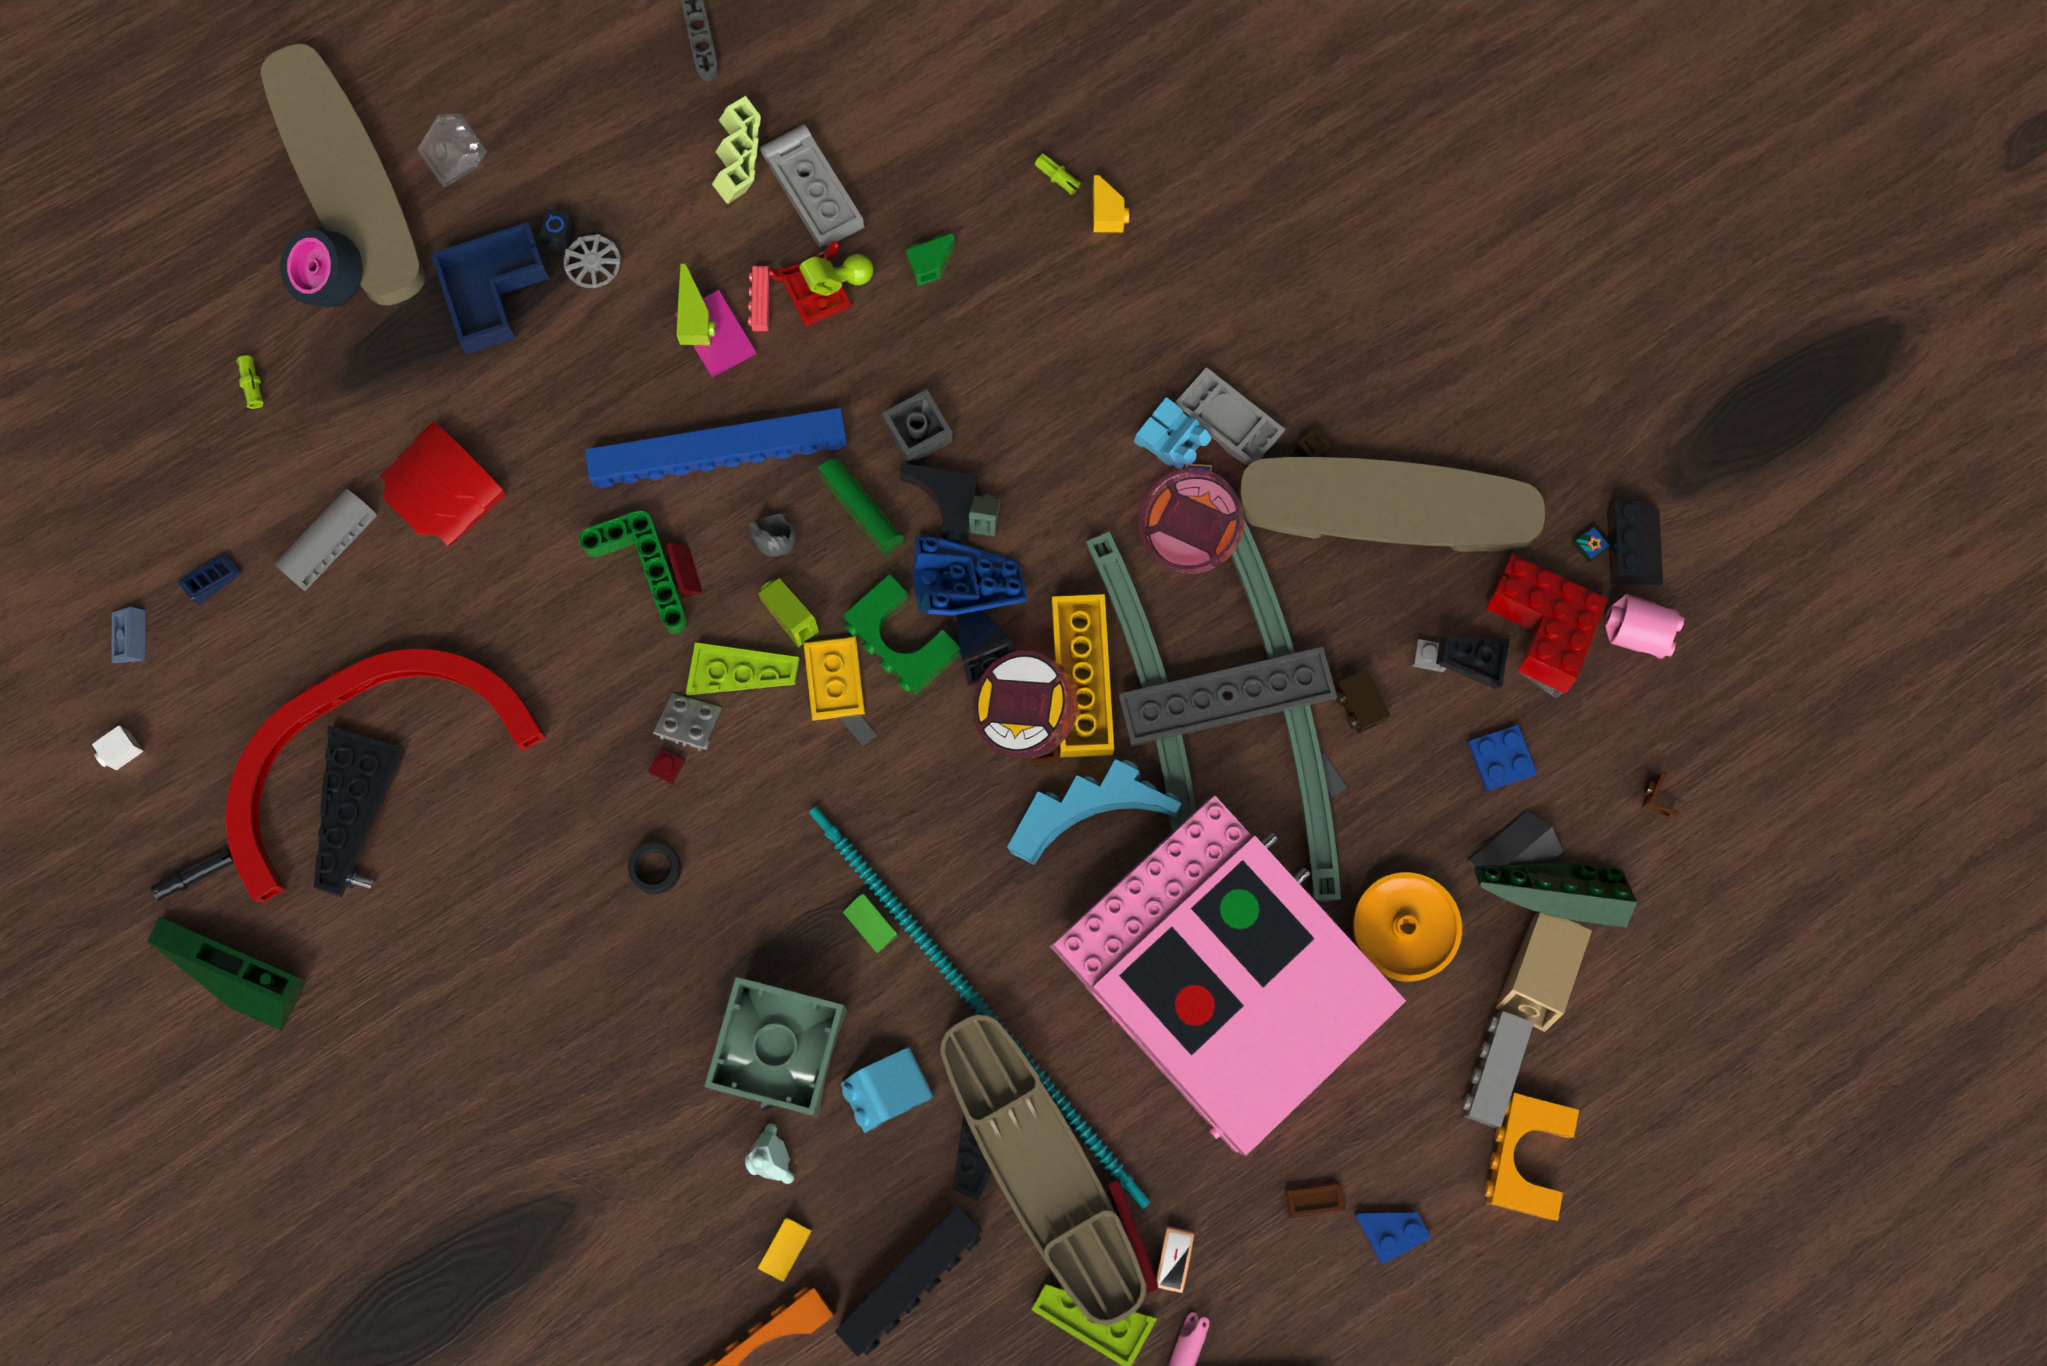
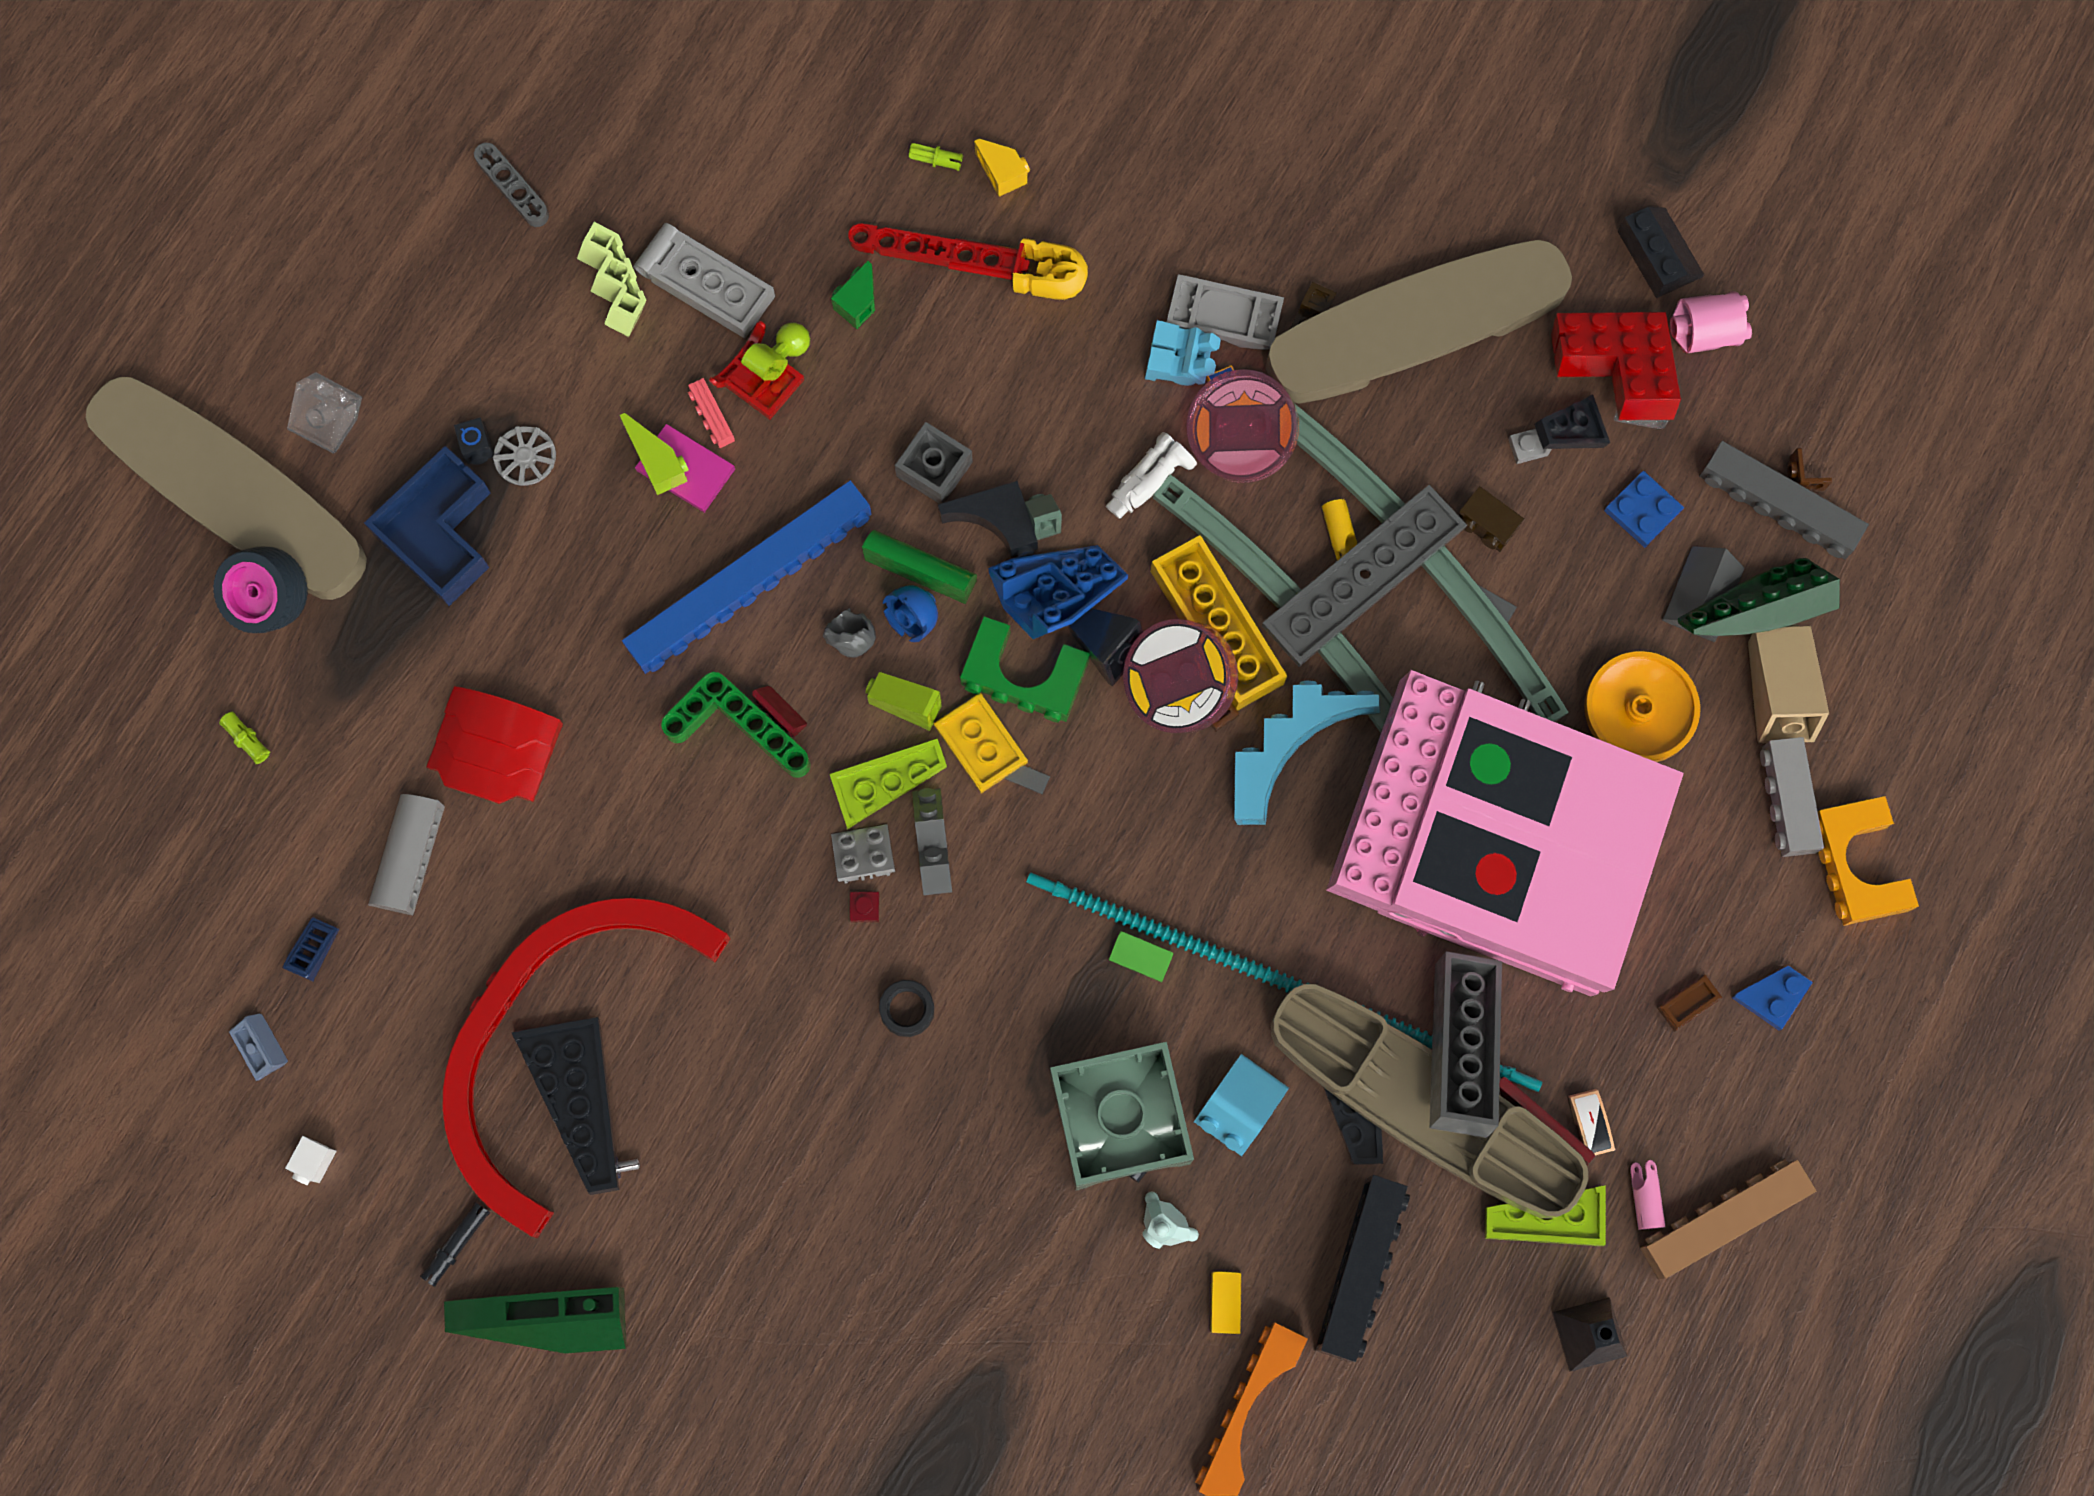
camera: 25 degrees left, 0 degrees up
(748, 736) = (932, 841): none -> dark grey arch
(834, 541) = (911, 611): none -> blue cylinder
(1091, 524) = (1149, 475): none -> white piece
(1097, 1137) = (1466, 1045): none -> dark grey brick
(1115, 320) = (1061, 273): none -> piece
(1230, 645) = (1339, 526): none -> yellow piece
(1591, 544) = (1621, 270): tile -> none
(1628, 811) = (1784, 501): none -> dark grey brick

